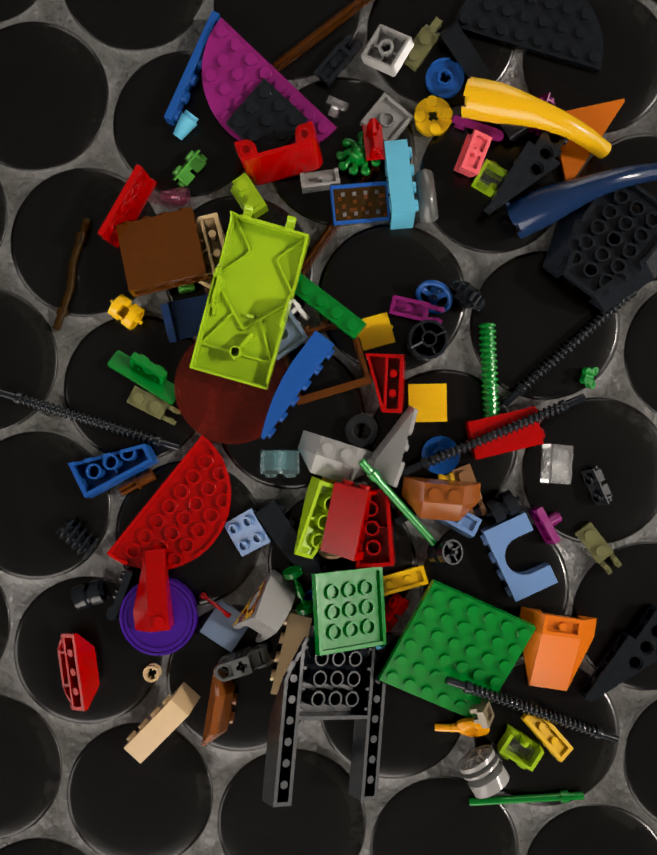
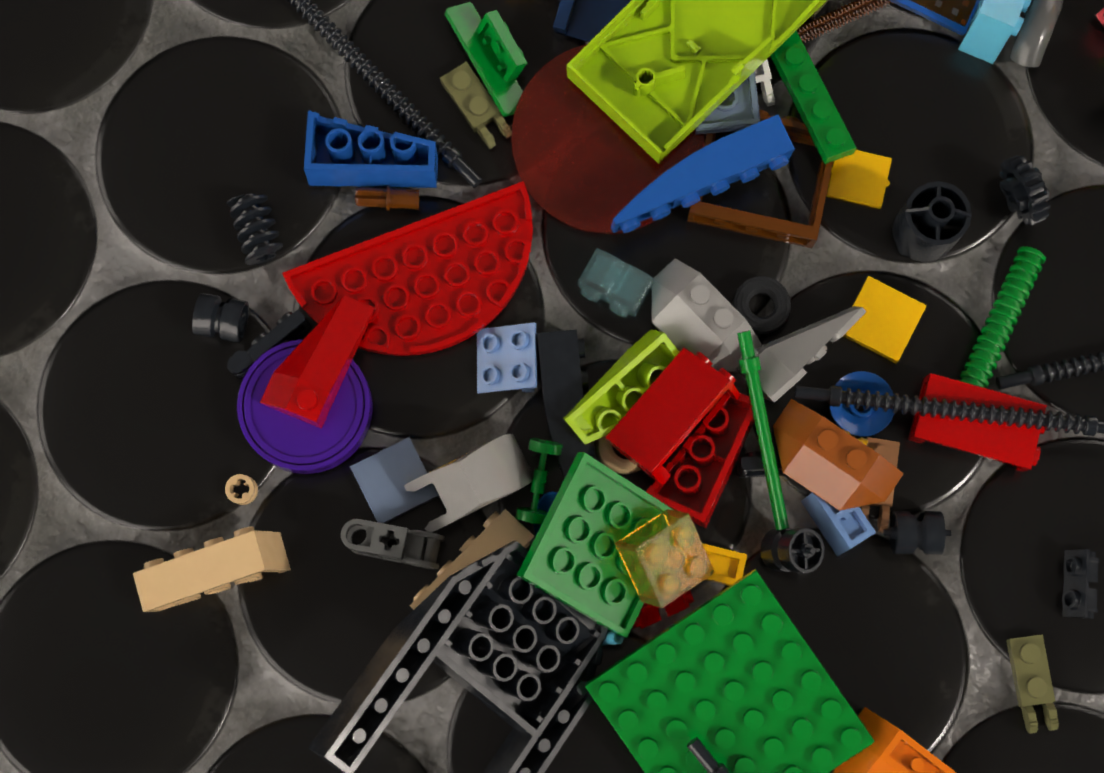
camera: 25 degrees right, 10 degrees down
(78, 670) = (137, 416): red wedge -> none
(203, 595) = (386, 418): red hinge -> none
(219, 708) = (312, 597): dark orange wedge -> none
(384, 597) = (665, 558): none -> clear yellow brick
(389, 380) = (844, 251): red wedge -> none
(413, 308) = (930, 166): magenta hinge -> none
(436, 292) = (987, 168): blue piece -> none
(518, 584) = (877, 662): medium blue arch -> none
(545, 524) = (970, 597): magenta tile -> none
(556, 464) = (1034, 513): clear brick -> none

